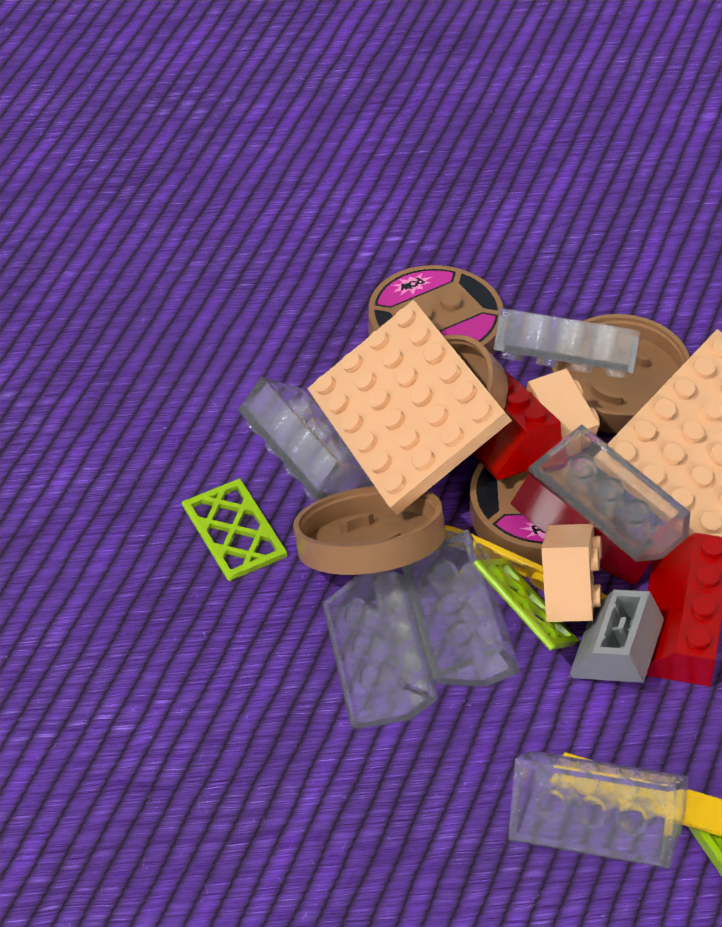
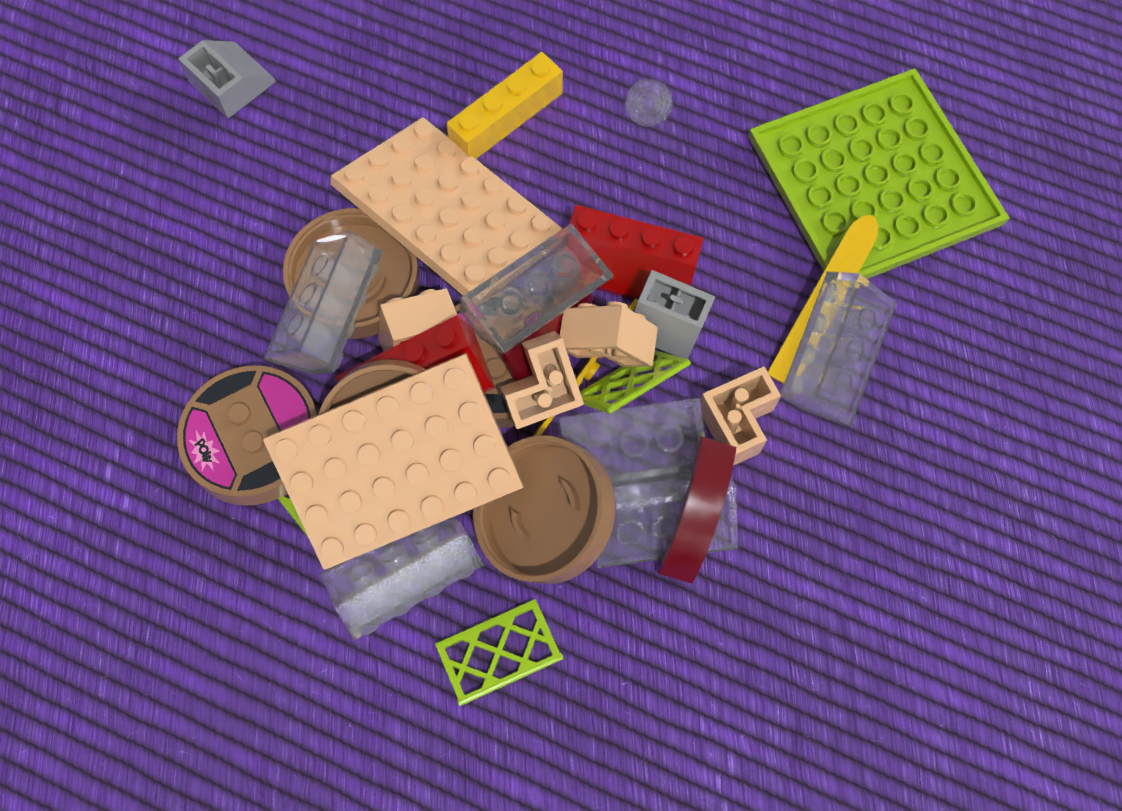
camera: 90 degrees left, 20 degrees up
(383, 656) = (699, 511): none -> dark red slope
(503, 512) = (549, 389): none -> light nougat brick
(503, 702) = (733, 409): none -> light nougat brick

